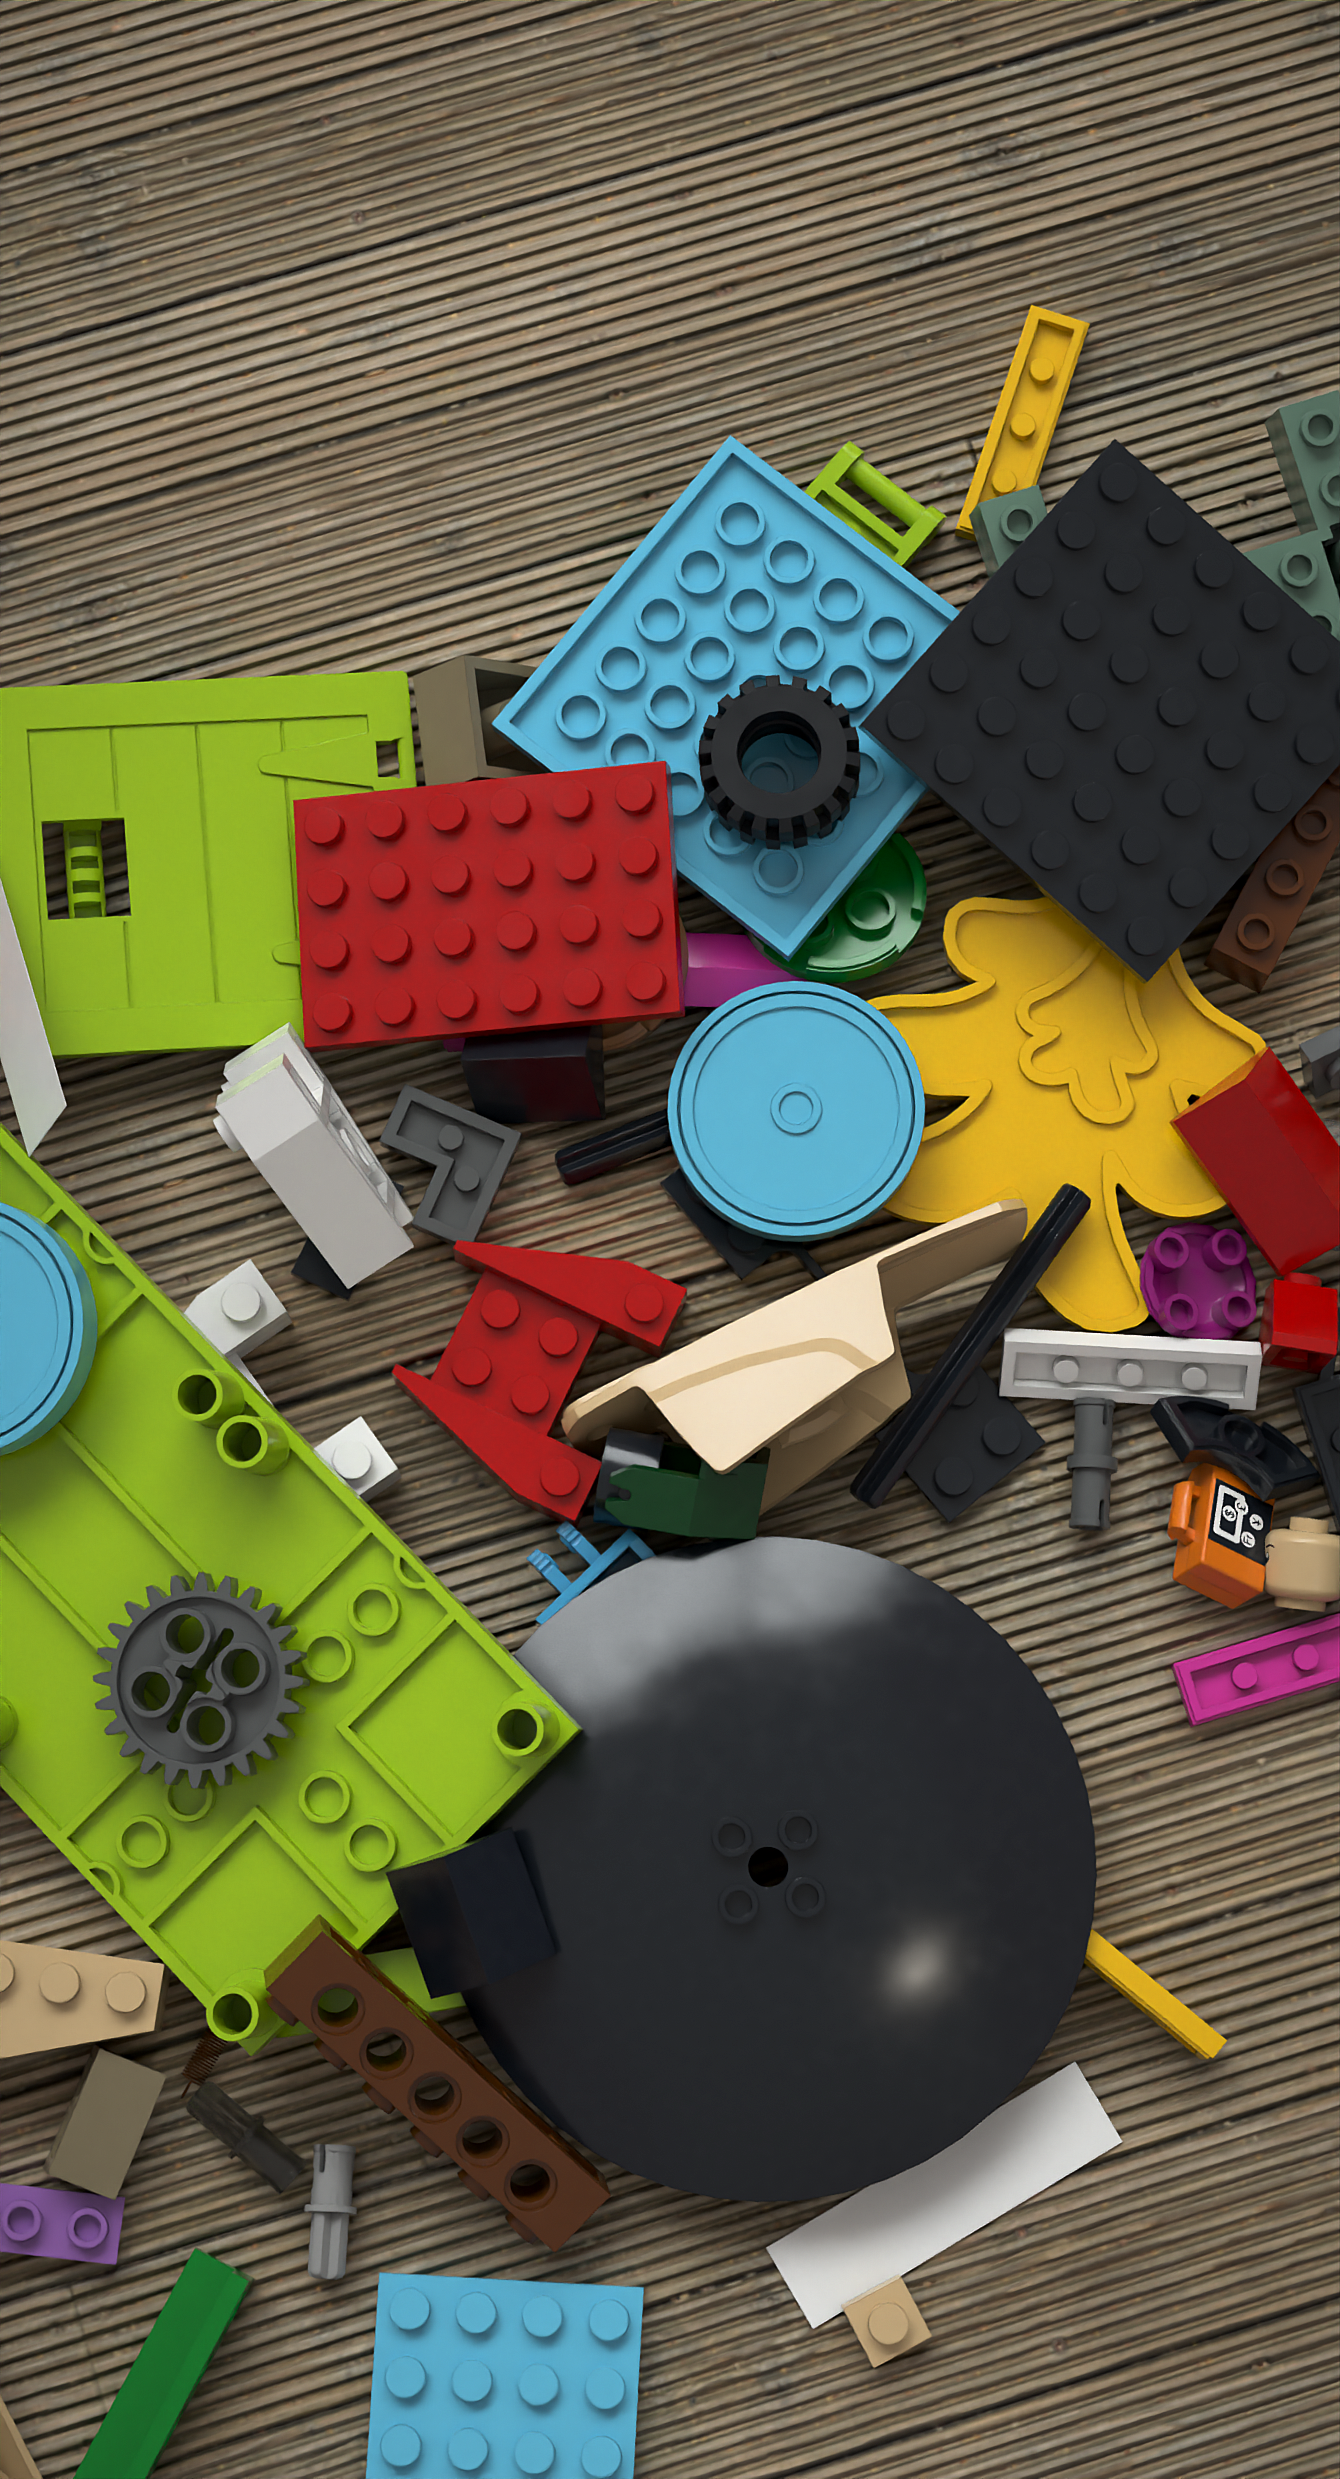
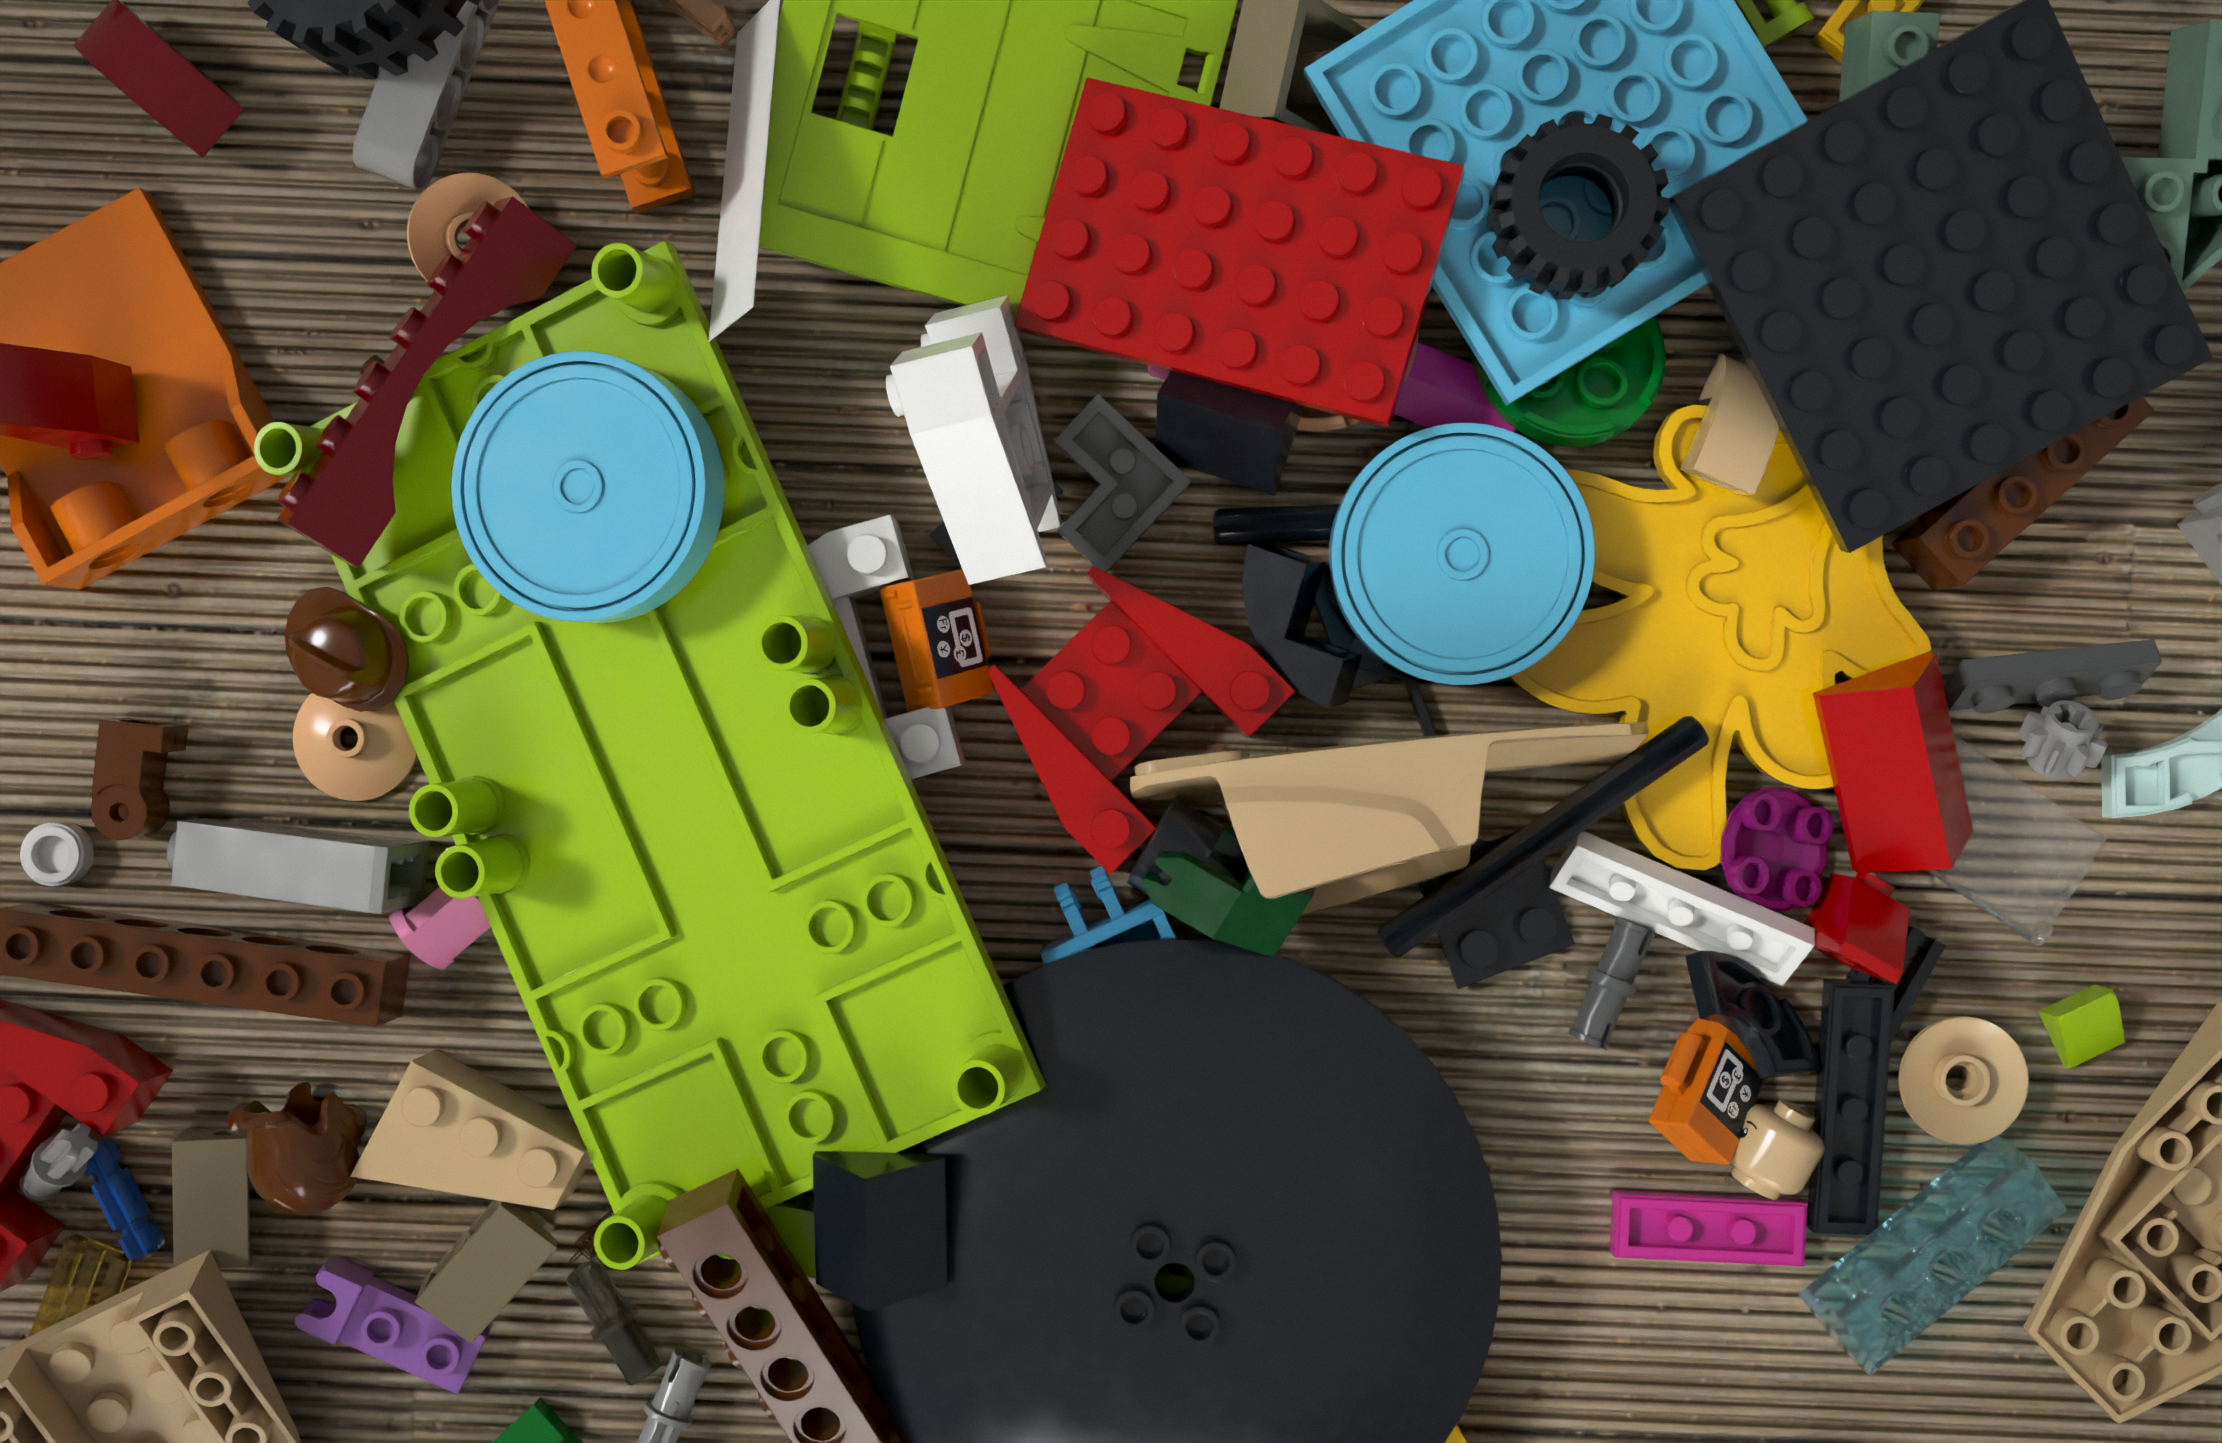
camera: 25 degrees right, 10 degrees up
(153, 1648) = (735, 957): dark grey gear -> none
(334, 1362) = (938, 640): none -> orange piece
(645, 1218) = (1278, 604): none -> black brick
(1005, 913) = (1735, 430): none -> tan brick

